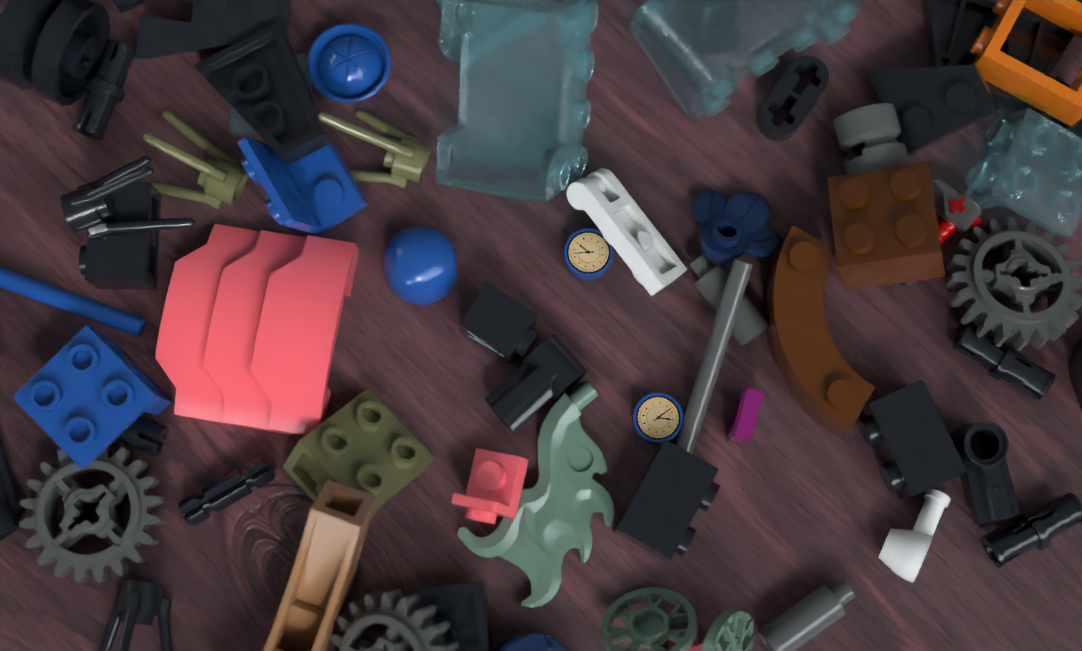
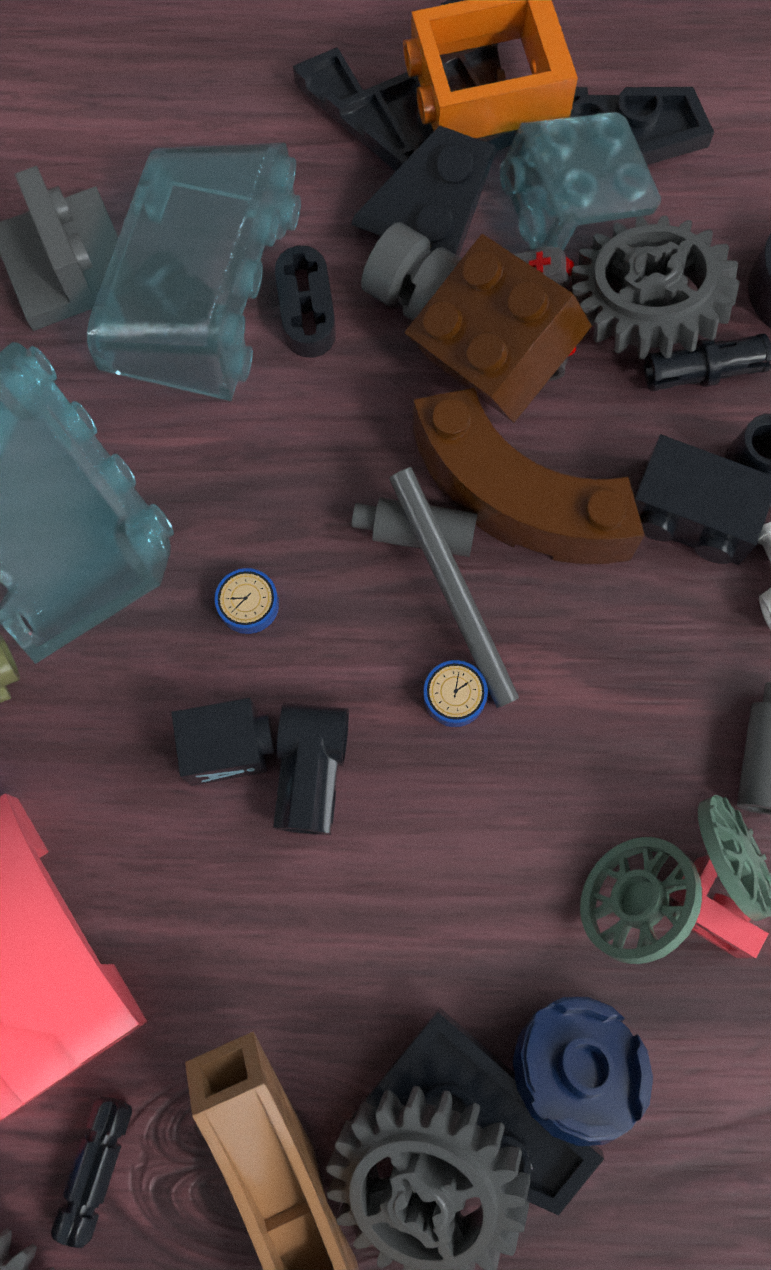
camera: 35 degrees left, 5 degrees down
(360, 449) = (192, 997): olive bracket -> none
(420, 264) = (91, 756): blue hair -> none
(493, 486) = (360, 906): coral bracket -> none
(558, 508) = (443, 870): sand green piece -> none
(626, 229) = (261, 544): white plate -> none
(668, 501) = (541, 761): black brick -> none
(734, 226) = (360, 455): dark blue plate -> none
(745, 416) = (534, 615): magenta tile -> none

